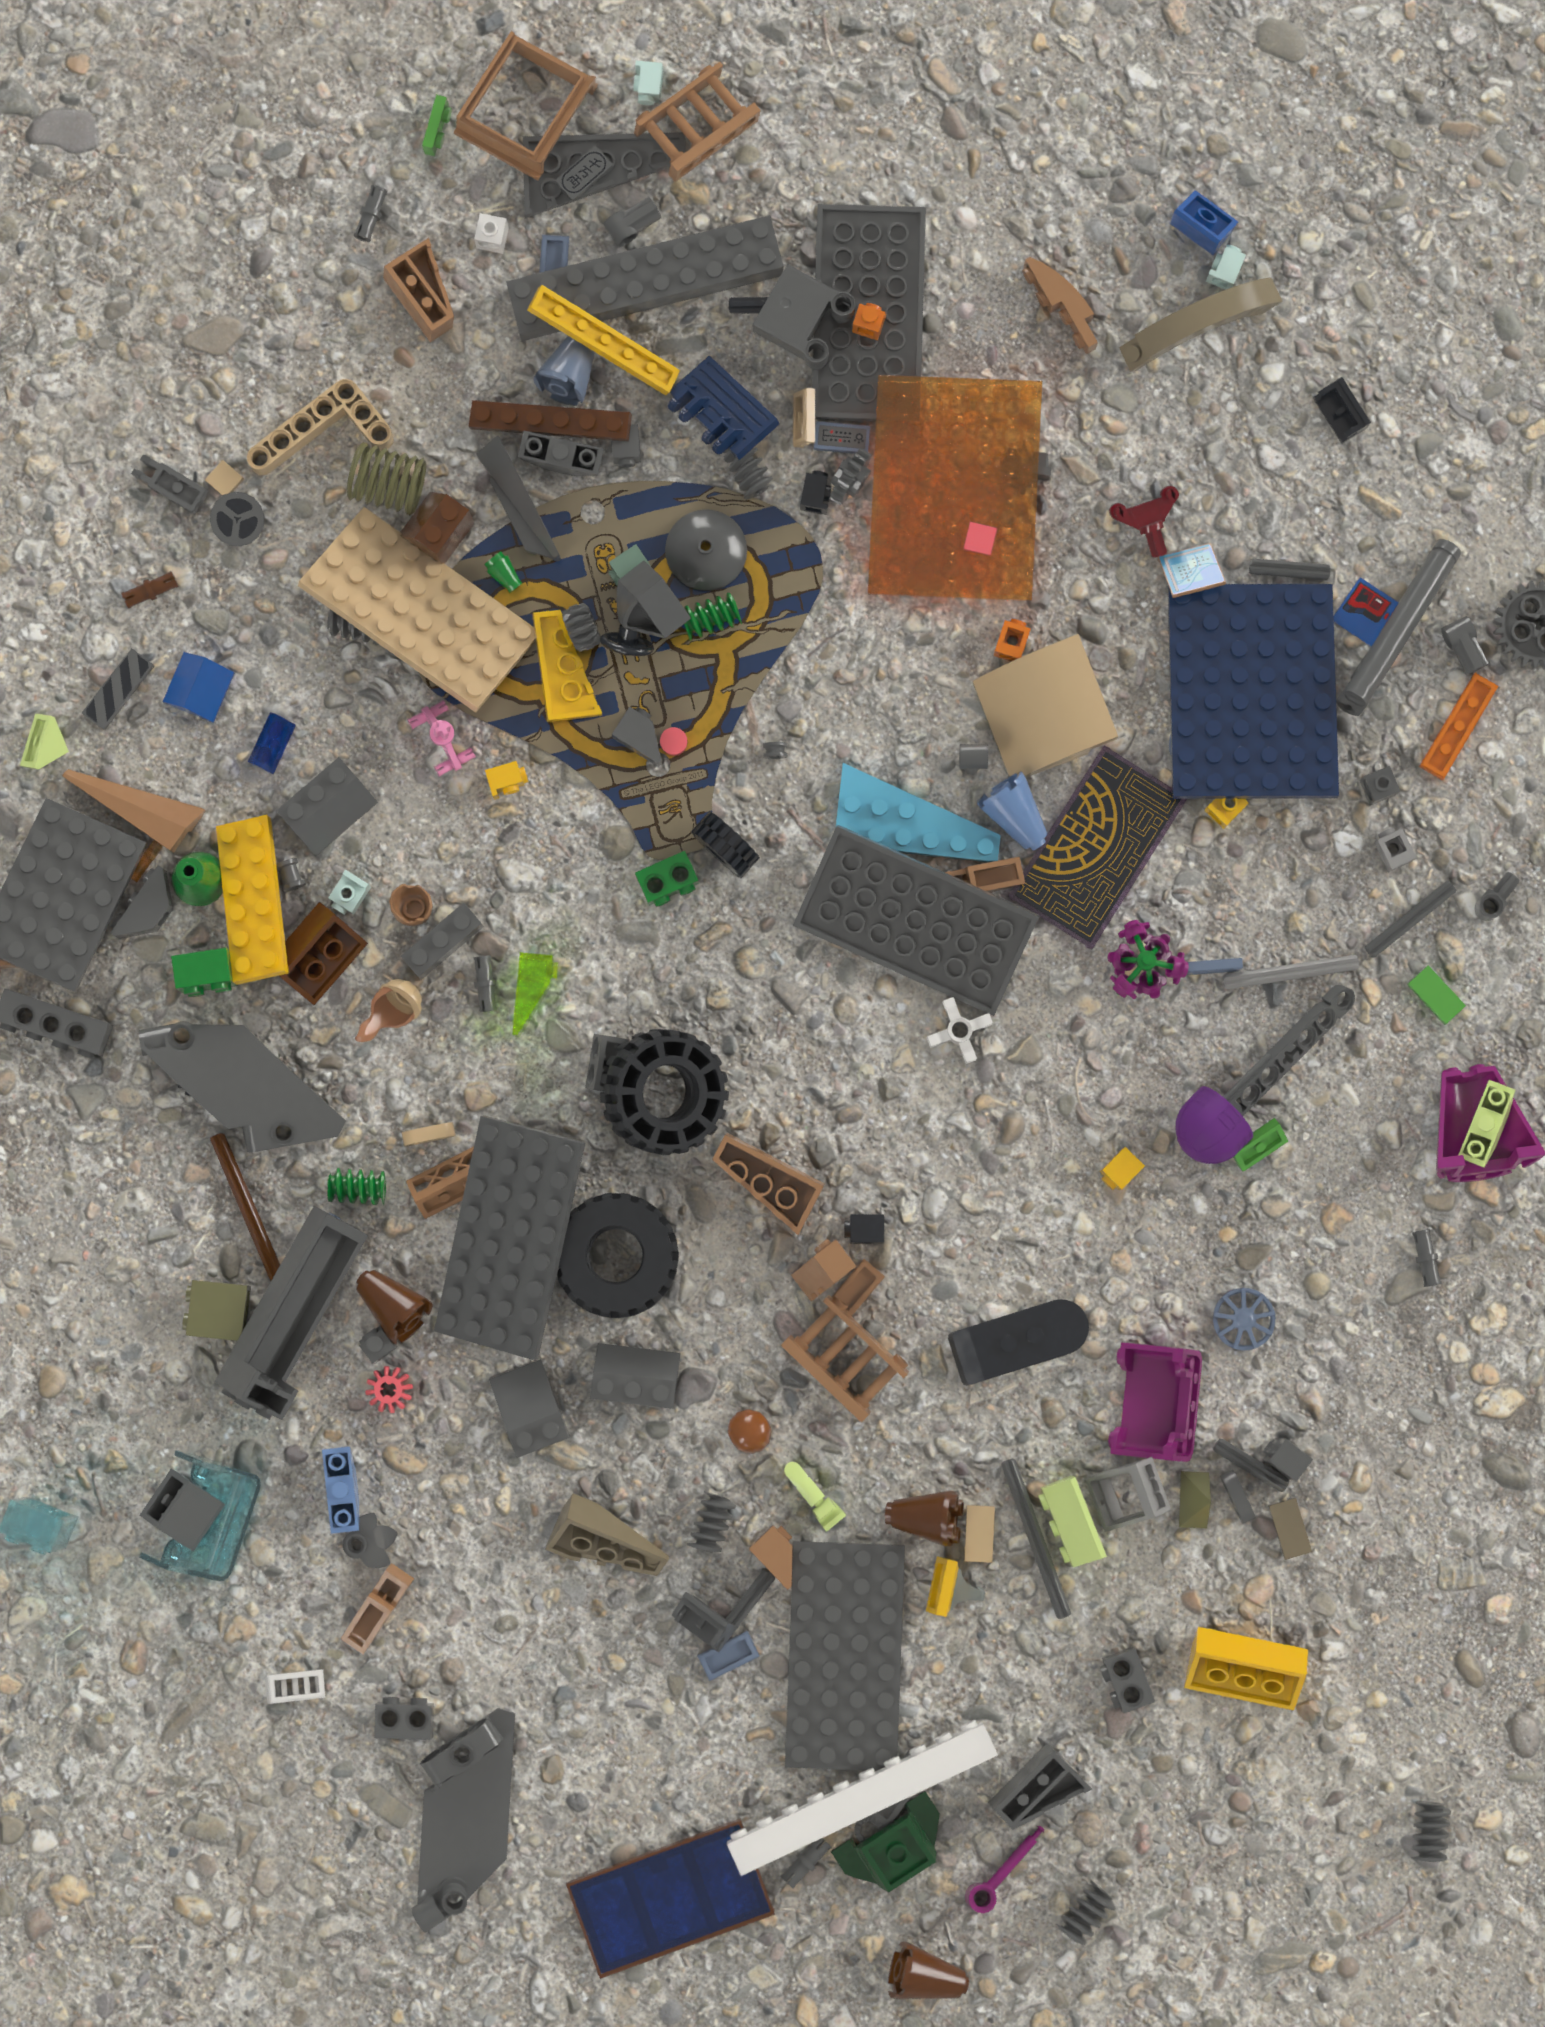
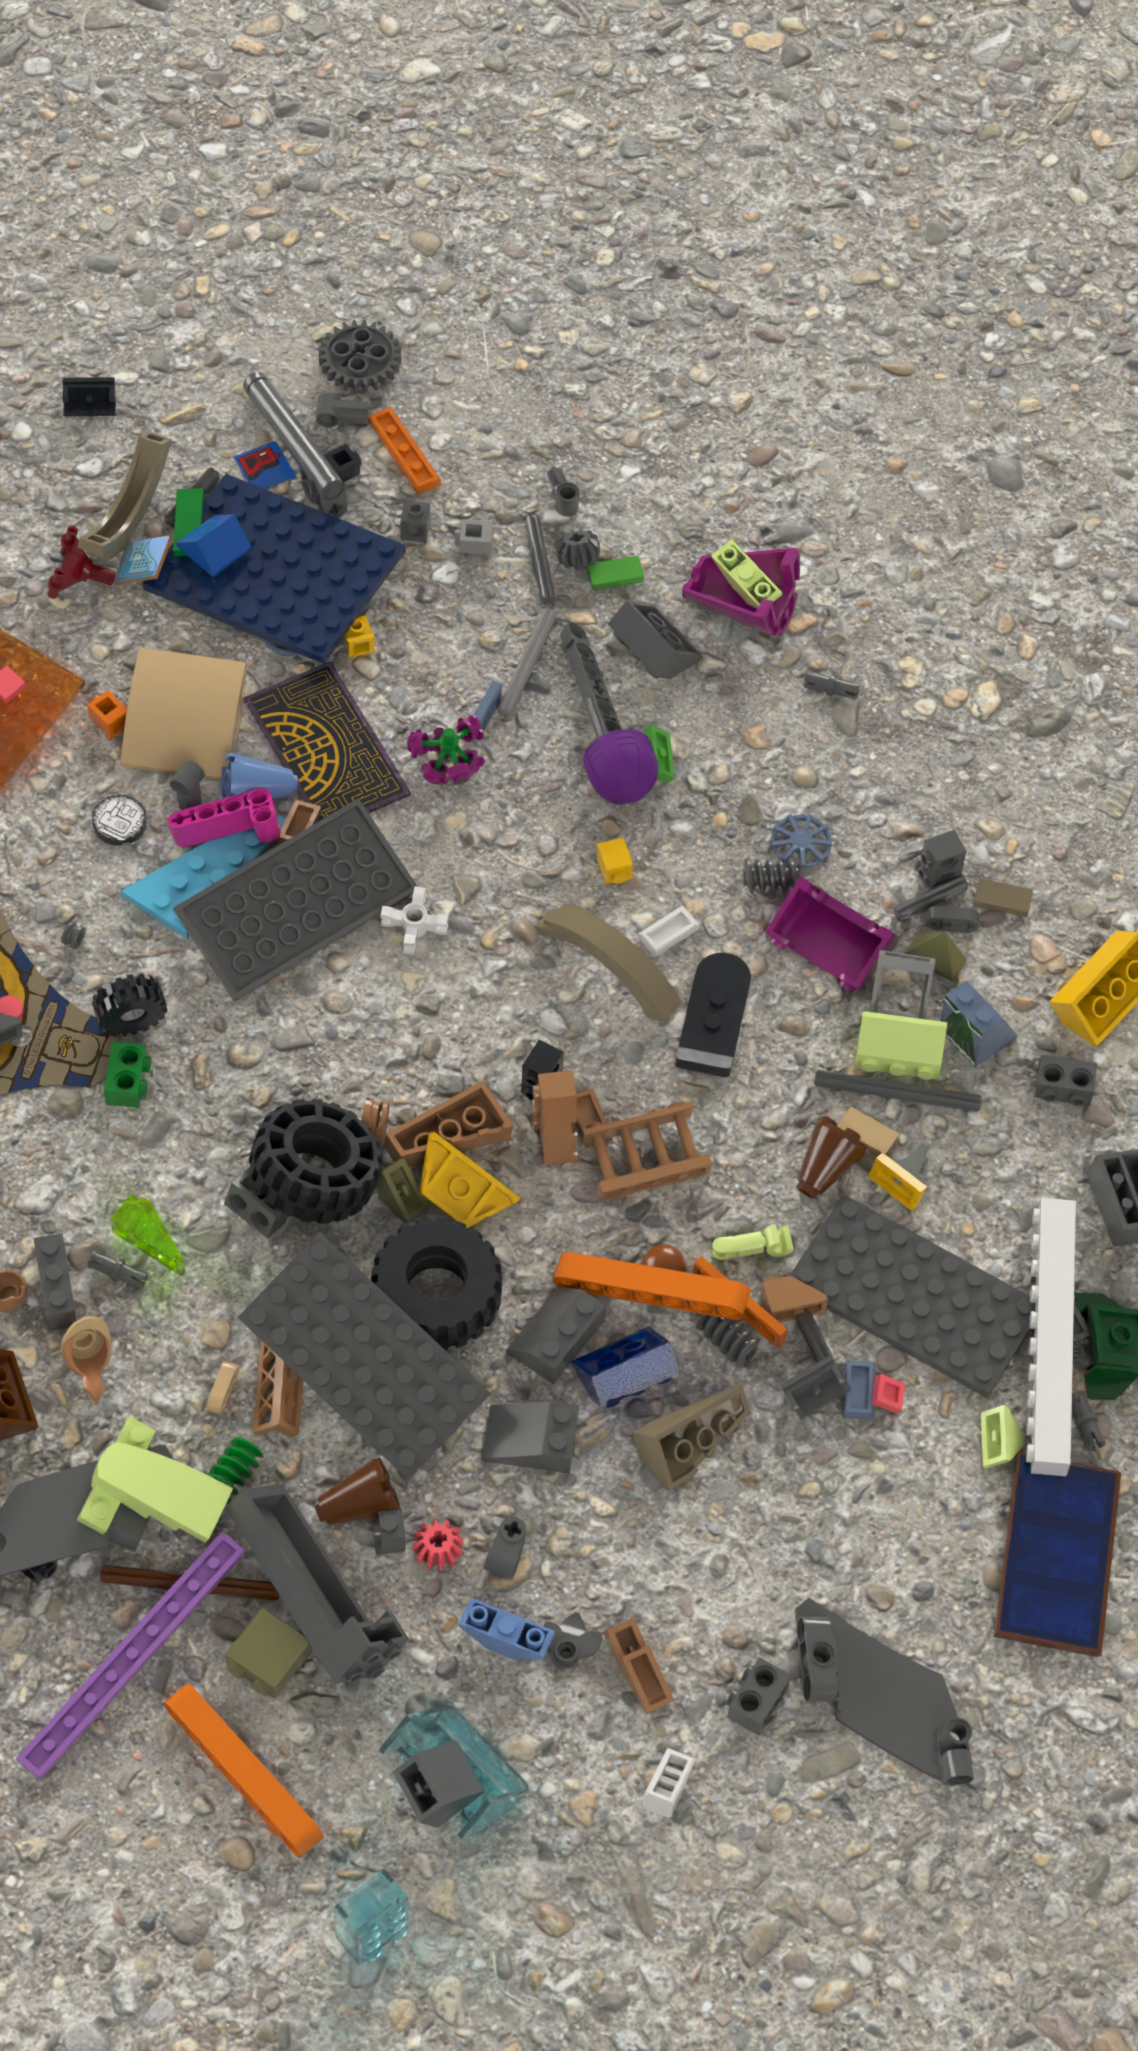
camera: 65 degrees left, 25 degrees down
(114, 1347) = (243, 1770): none -> orange beam
(157, 1204) = (130, 1656): none -> medium lavender plate
(294, 1137) = (152, 1487): none -> yellowish green slope
(412, 1447) = (506, 1551): none -> dark grey piece
(635, 1451) = (626, 1367): none -> clear blue slope
(688, 1176) = (400, 1191): none -> olive slope
(713, 1436) = (652, 1285): none -> orange beam
(719, 1221) = (460, 1185): none -> yellow wing
(736, 1682) = (888, 1393): none -> coral tile
(742, 1109) = (371, 1116): none -> medium nougat wheel
(748, 1514) = (754, 1313): none -> orange tile
(749, 1798) = (1000, 1436): none -> yellowish green slope
(914, 716) = (119, 820): none -> tile
(938, 782) = (227, 817): none -> dark pink beam
(1015, 1222) = (617, 954): none -> dark tan arch
(1082, 1253) = (668, 931): none -> white tile
(1138, 1576) = (974, 1024): none -> sand blue slope
(1186, 1315) = (770, 875): none -> dark grey piece
(1237, 627) = (216, 543): none -> blue slope
(1242, 521) = (133, 499): none -> dark tan arch
(1253, 586) = (187, 514): none -> green tile
(1380, 1073) = (653, 639): none -> dark grey slope
(1401, 672) = (344, 462): none -> black brick
(1436, 949) = (578, 549): none -> dark grey gear

